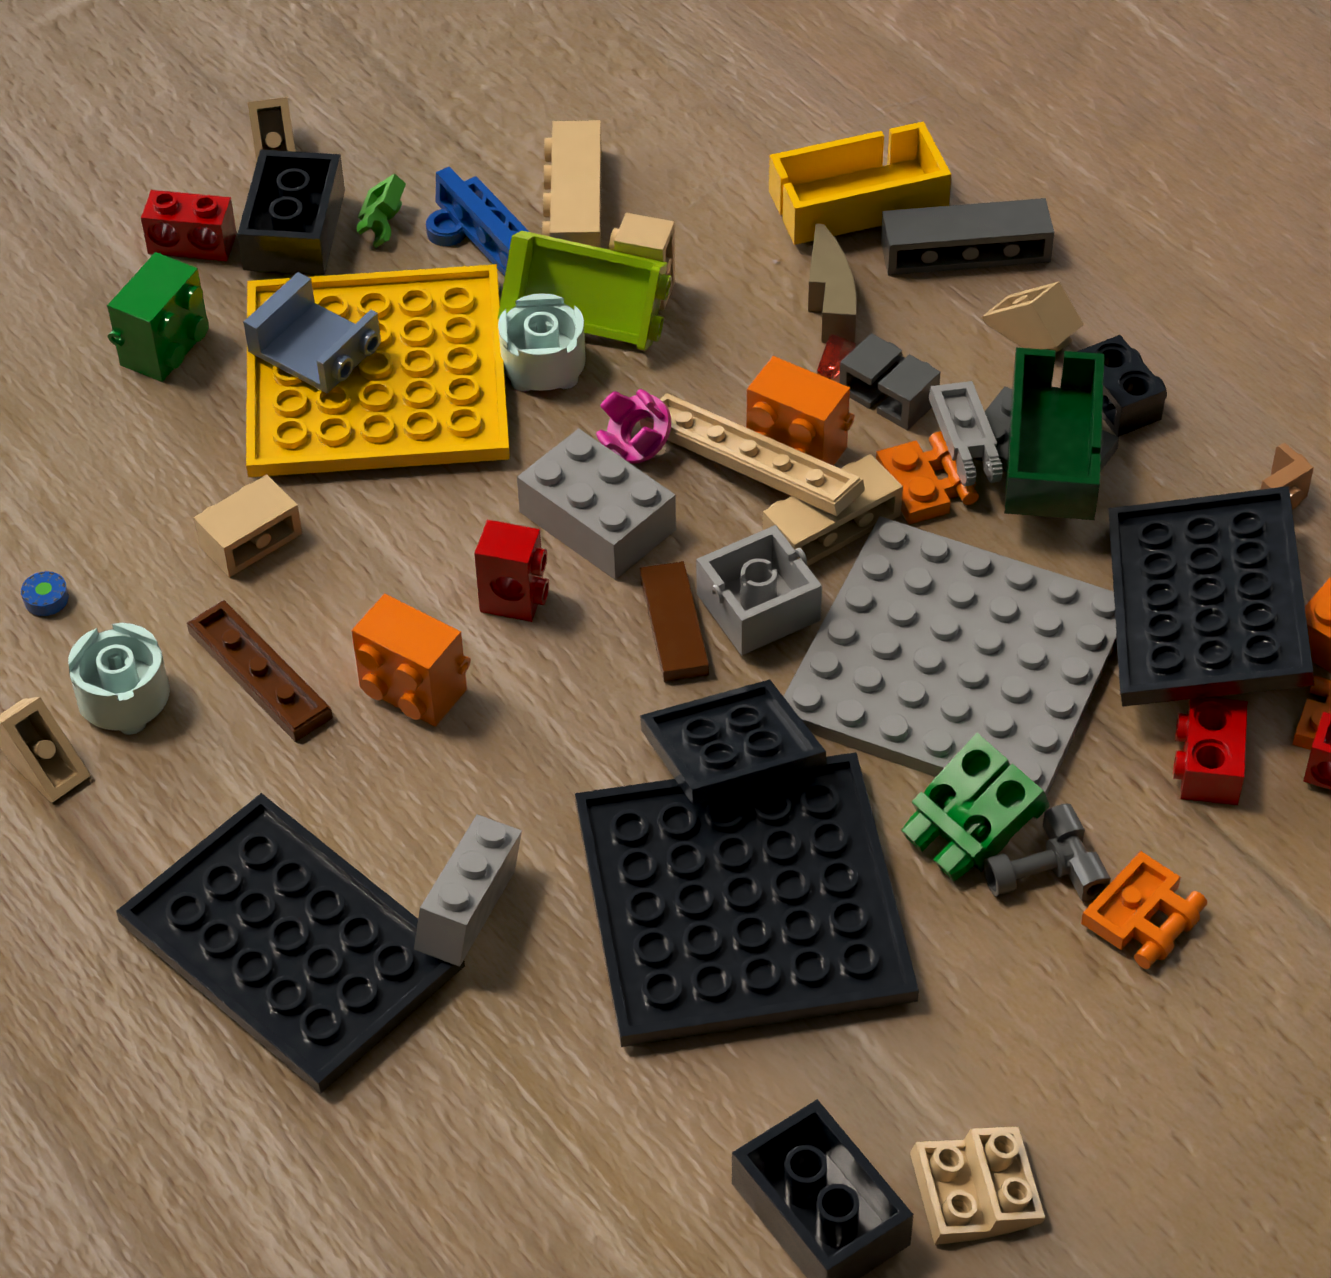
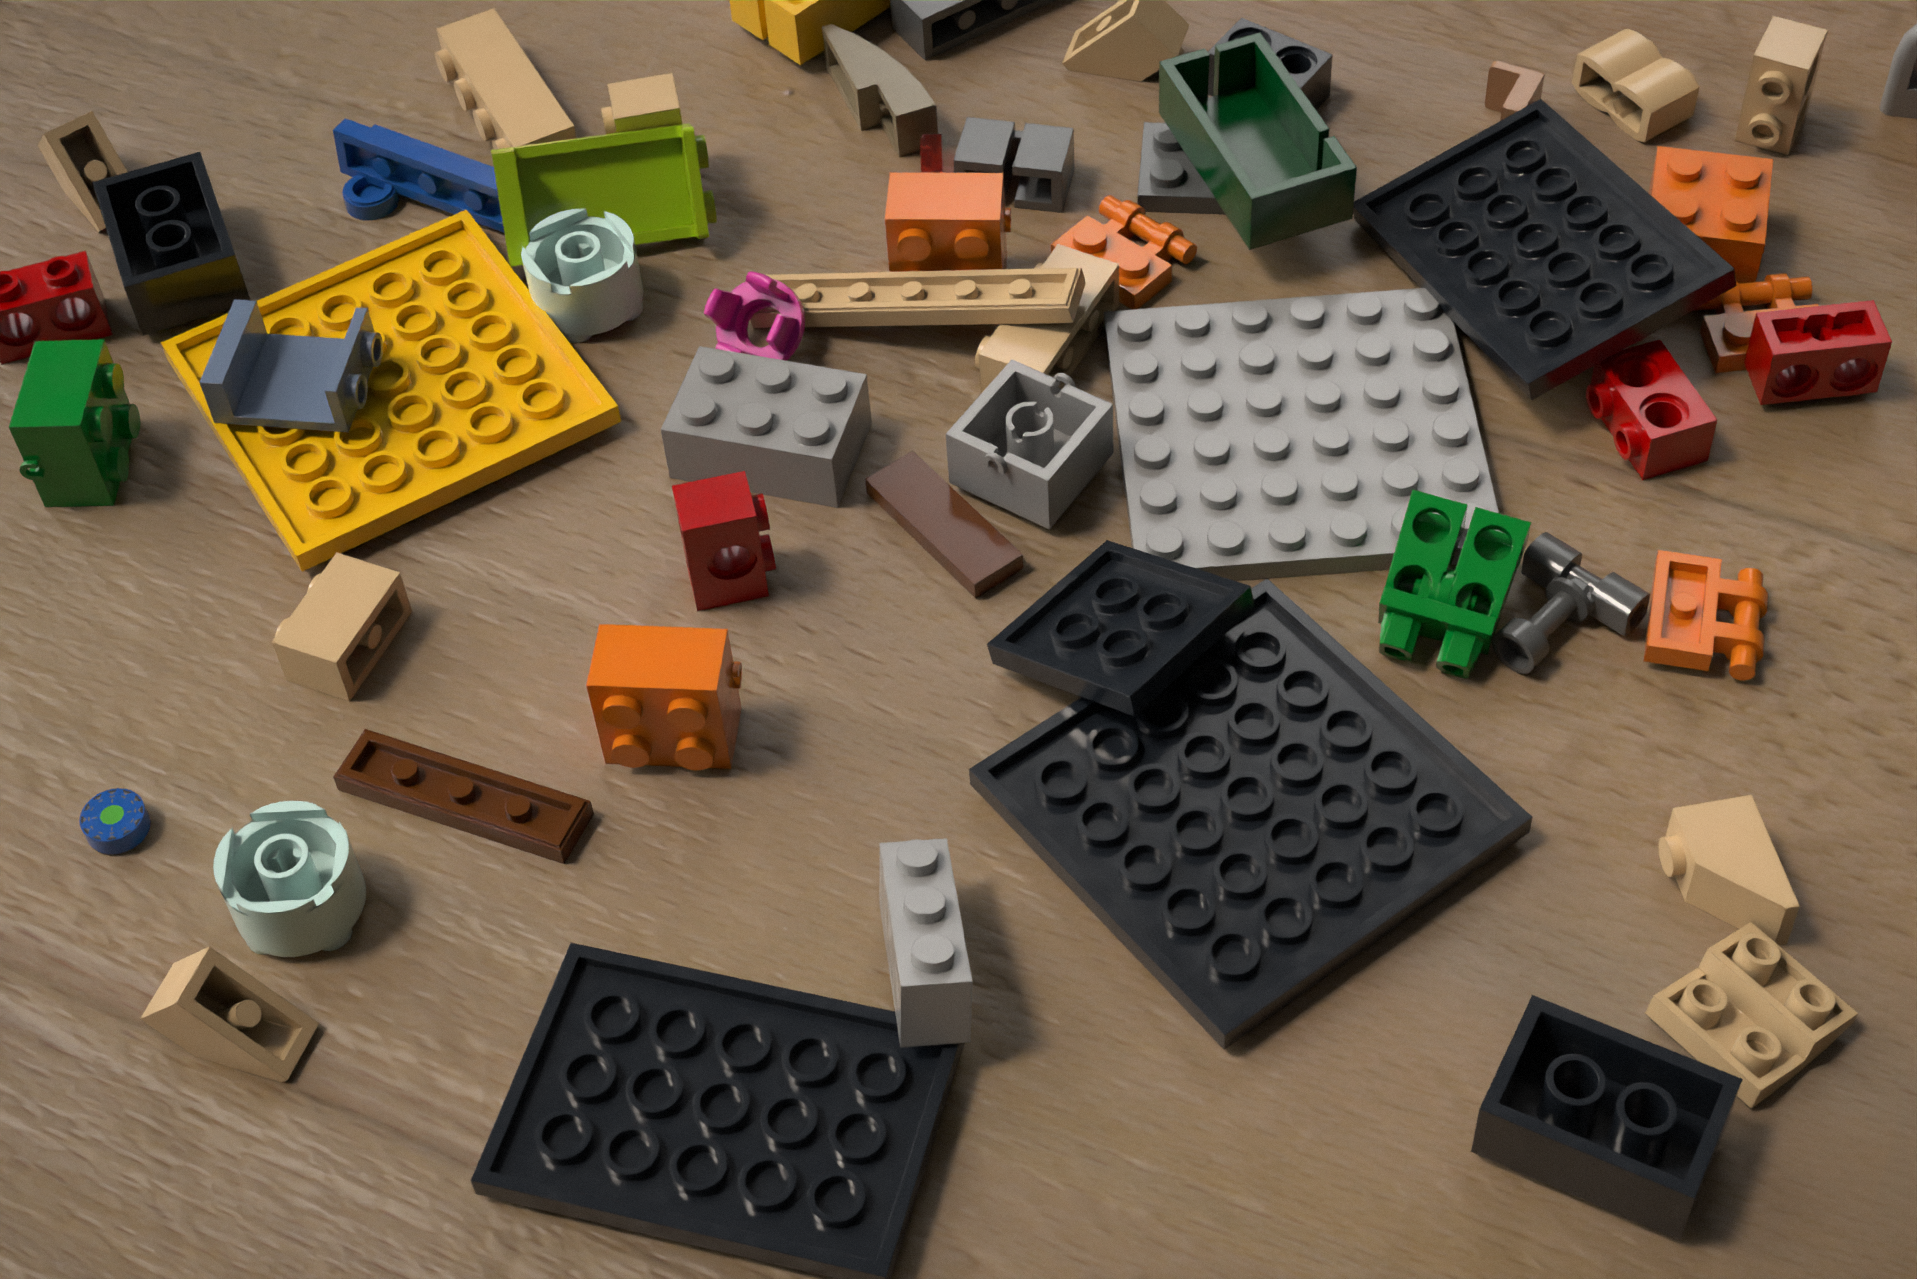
camera: 25 degrees left, 0 degrees up
(379, 206) = (275, 199): bright green plate -> none
(966, 430) = (1148, 180): light grey hinge -> none
(1028, 1081) = (1729, 865): none -> tan slope

